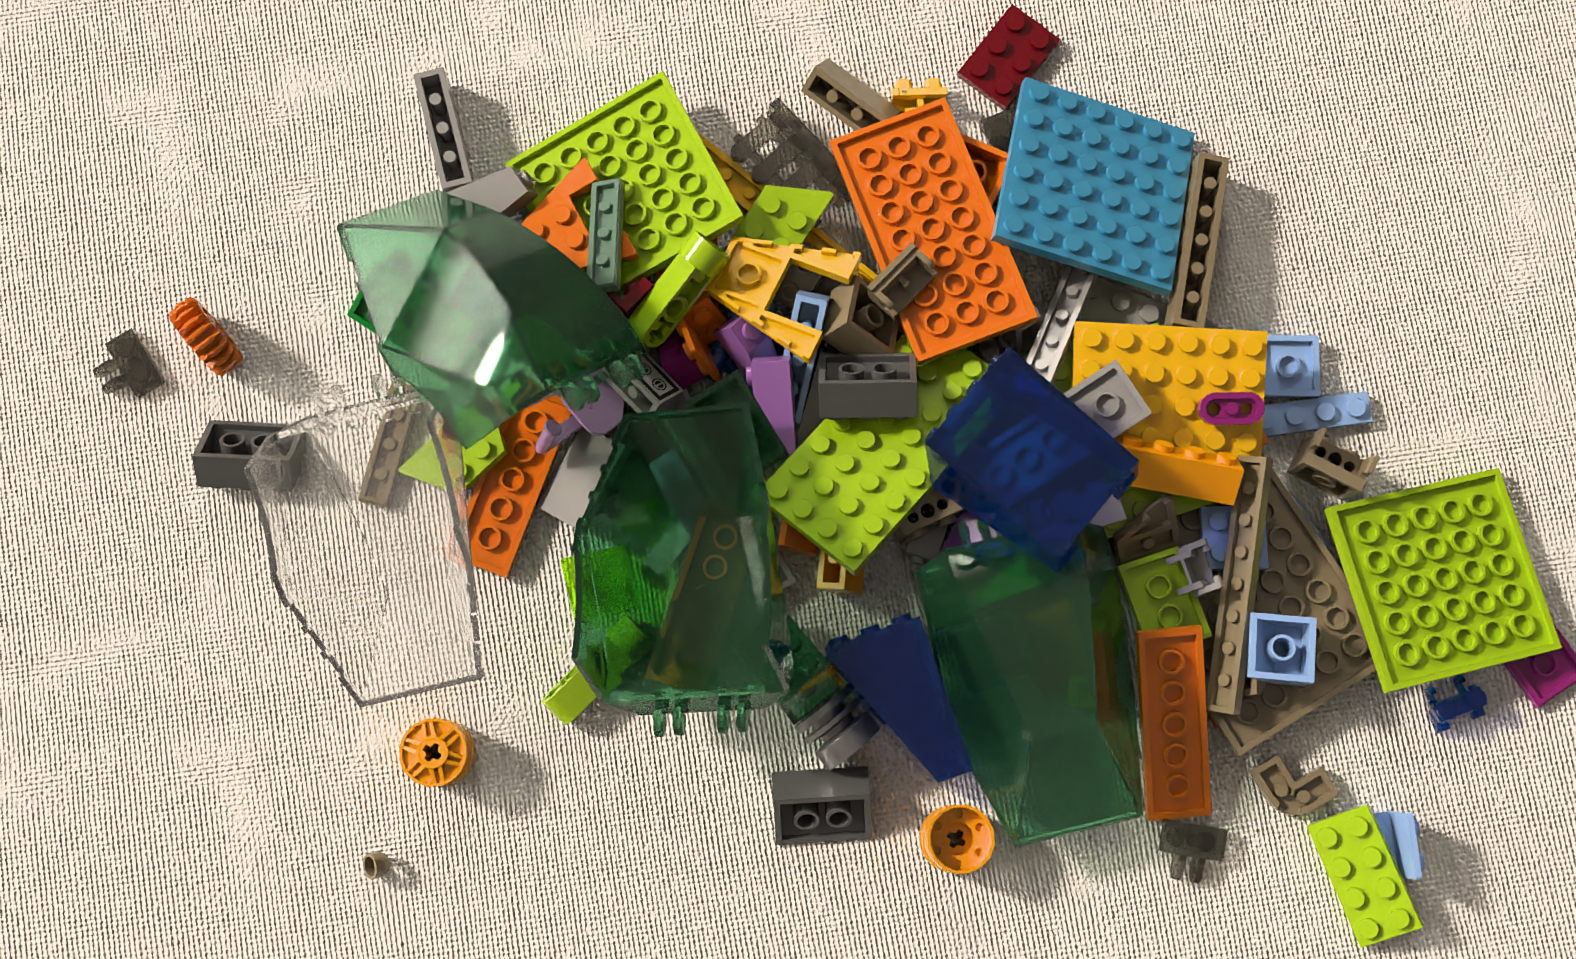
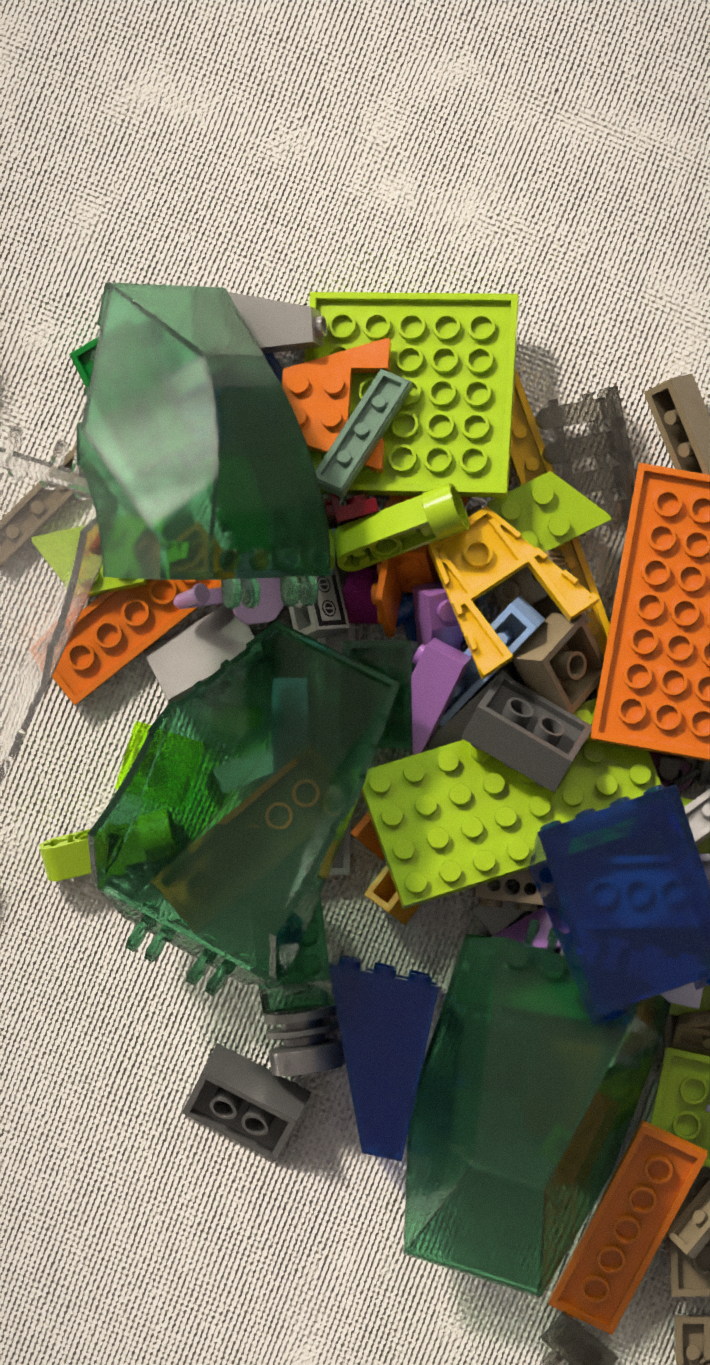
camera: 35 degrees right, 5 degrees up
(444, 128) = (269, 227): light grey brick -> none
(902, 281) = (622, 650): dark tan hinge -> none
(973, 831) = (374, 1216): light orange wheel -> none

